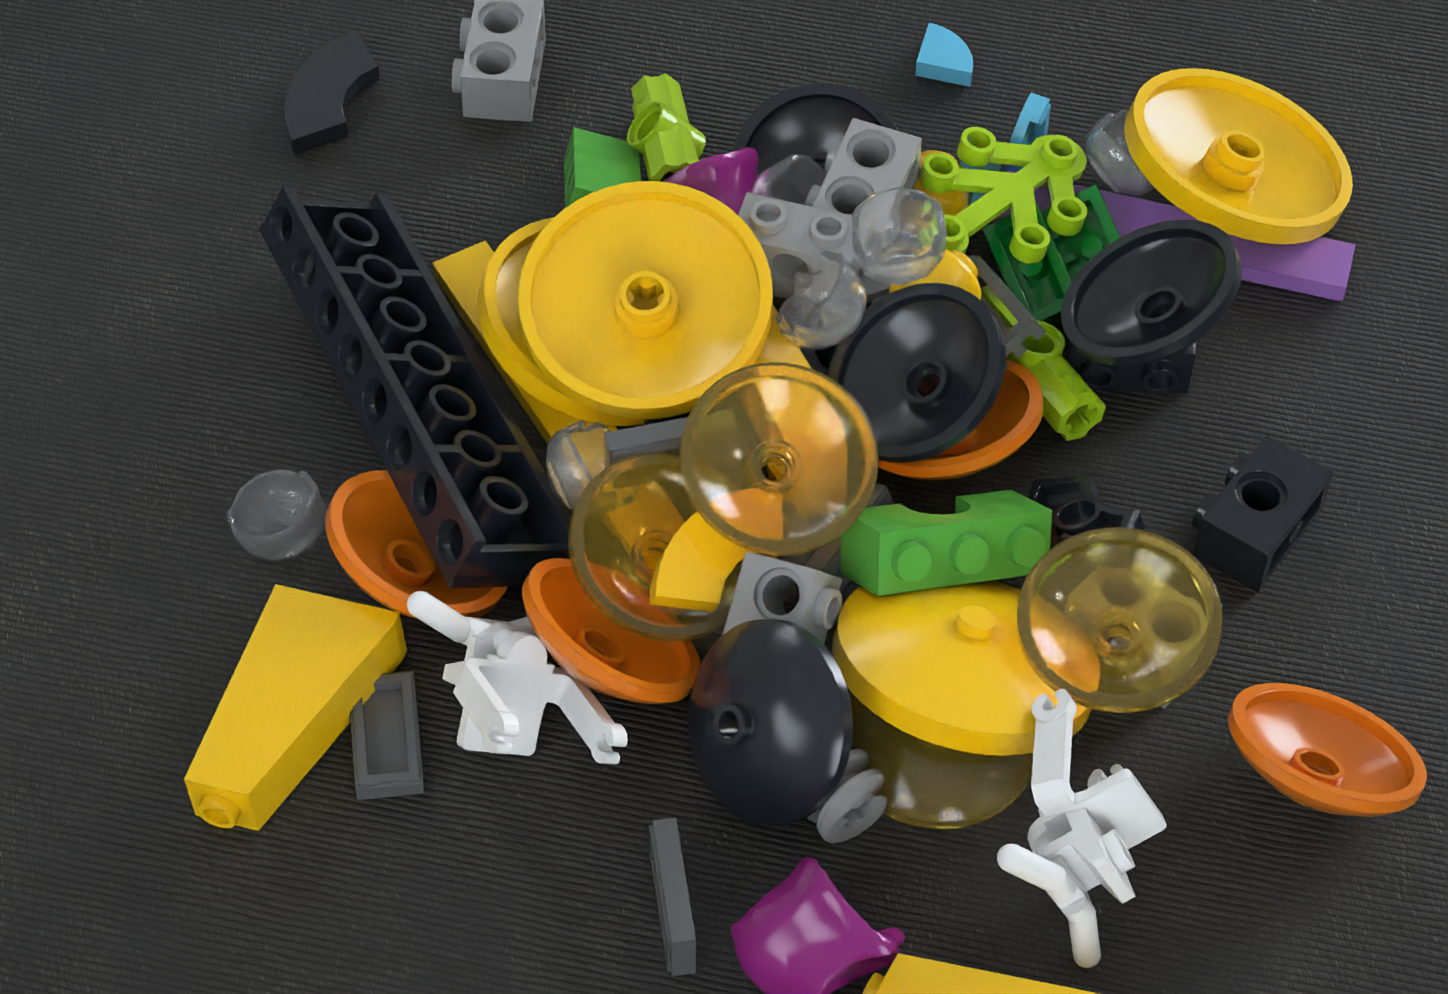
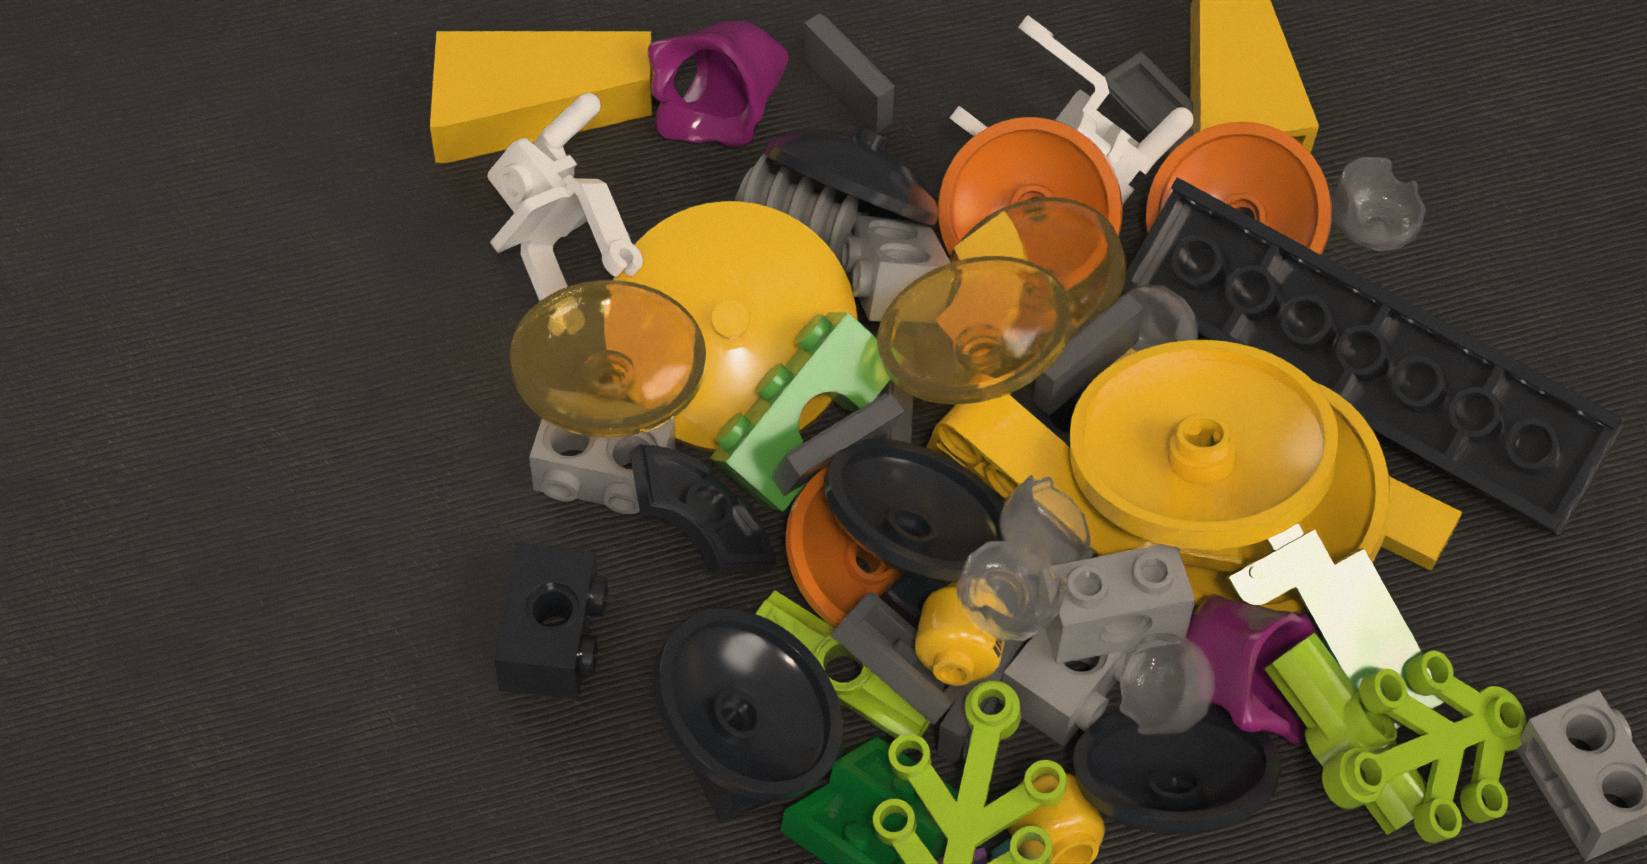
camera: 150 degrees right, 5 degrees up
(618, 96) = (1490, 722): none -> lime plant
(851, 181) = (1091, 706): light grey brick -> none
(947, 467) = (817, 453): none -> dark grey tile
(1325, 750) = (345, 386): orange dish -> none

